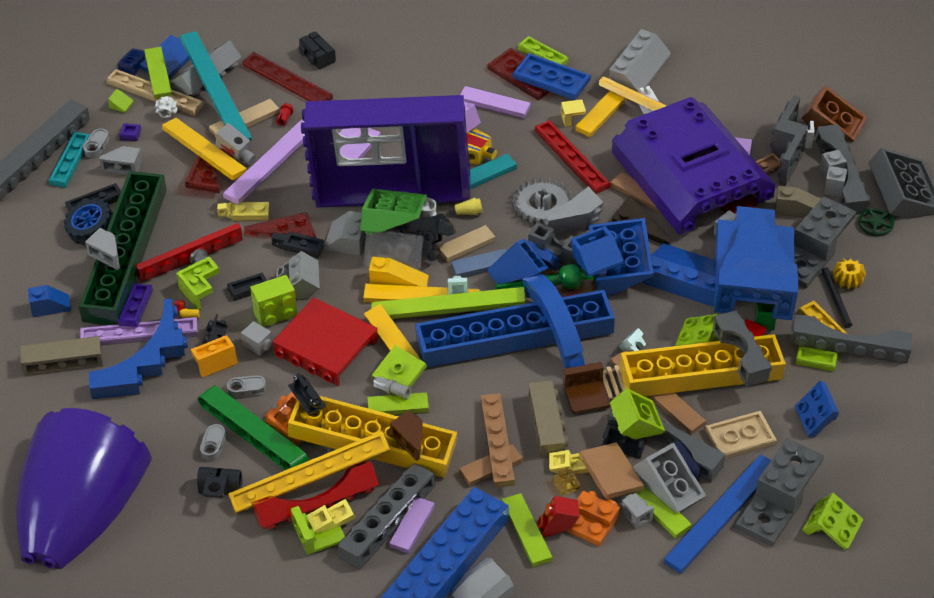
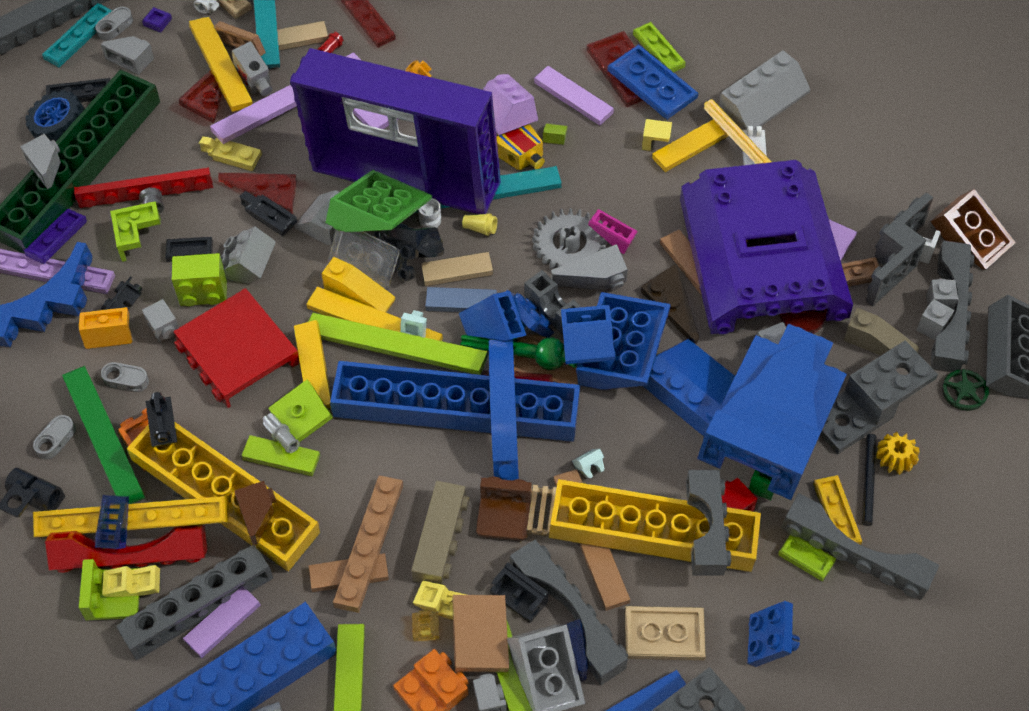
camera: 20 degrees right, 10 degrees up
(184, 312) = (104, 259): yellow arm -> none
(209, 125) = (237, 37): none -> medium nougat tile
(303, 493) = (120, 533): none -> clear blue slope
(495, 132) = (554, 134): none -> lime slope
(558, 516) = (388, 675): red slope -> none
(572, 157) = (631, 192): red tile -> none
(572, 183) = (617, 233): none -> dark pink slope
(636, 415) = (539, 571): lime slope -> none
(697, 330) = (671, 473): lime bracket -> none

